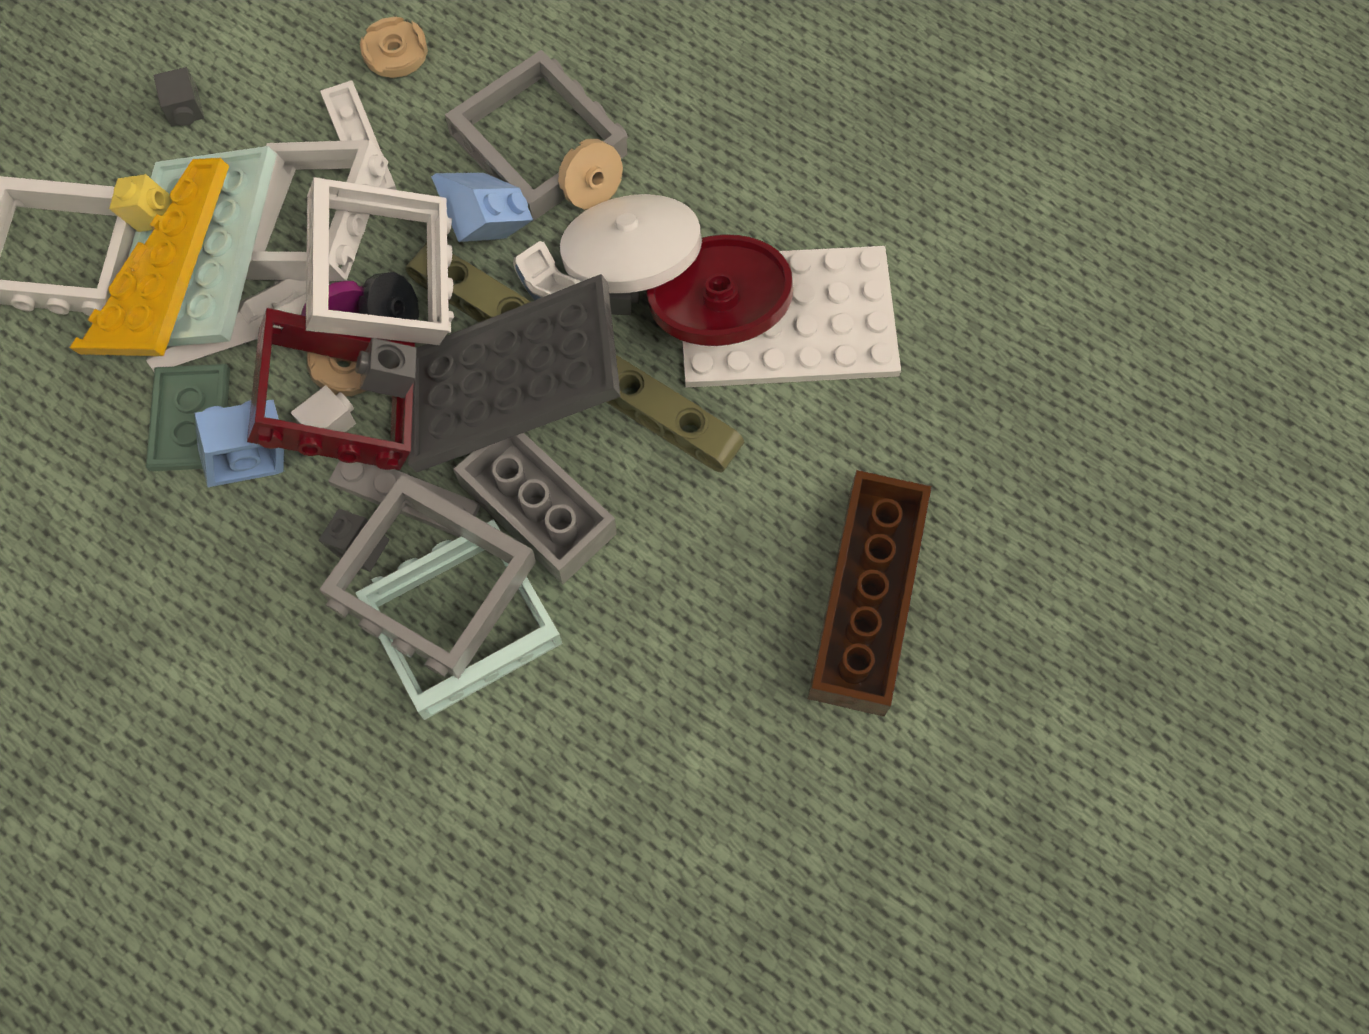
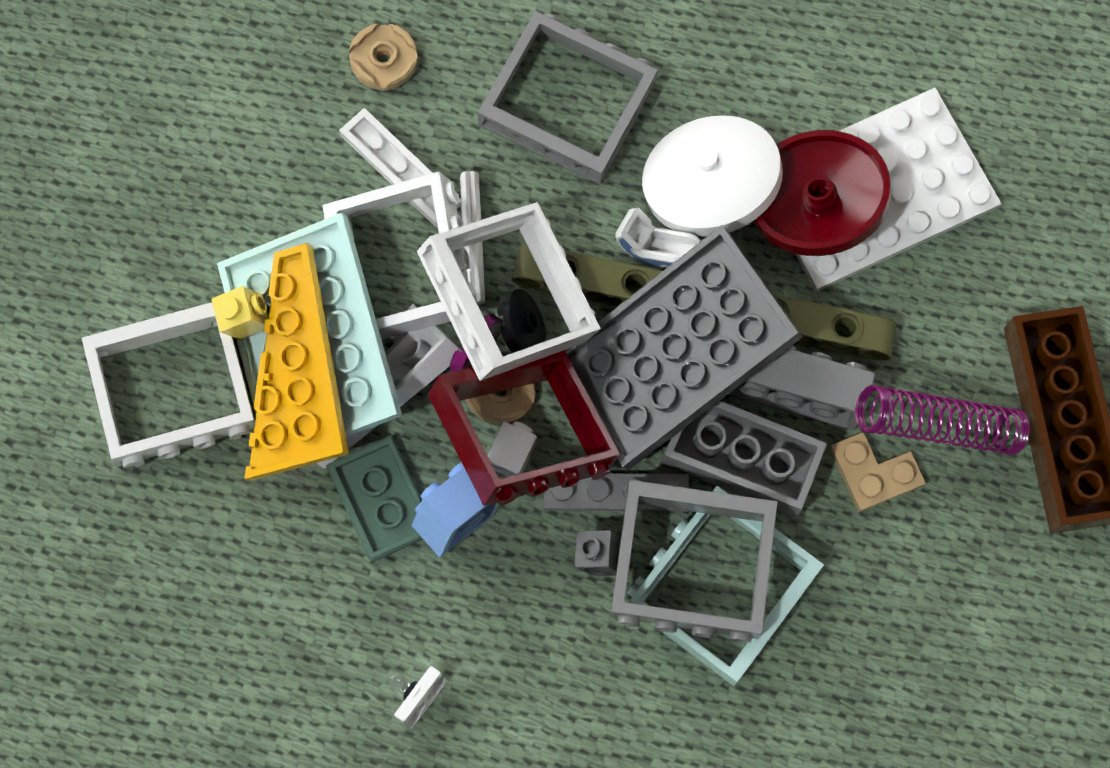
camera: 25 degrees left, 5 degrees up
(120, 605) = (417, 694): none -> white piece
(178, 97) = (204, 188): dark grey brick -> none
(387, 367) = (565, 385): dark grey brick -> none
(389, 228) = (471, 213): none -> white axle
(482, 205) = (562, 188): light blue slope -> none
(580, 165) = (642, 120): tan plate -> none
(622, 459) = (809, 387): none -> light grey brick
(655, 581) = (874, 482): none -> tan plate
(656, 508) = (886, 396): none -> magenta piece

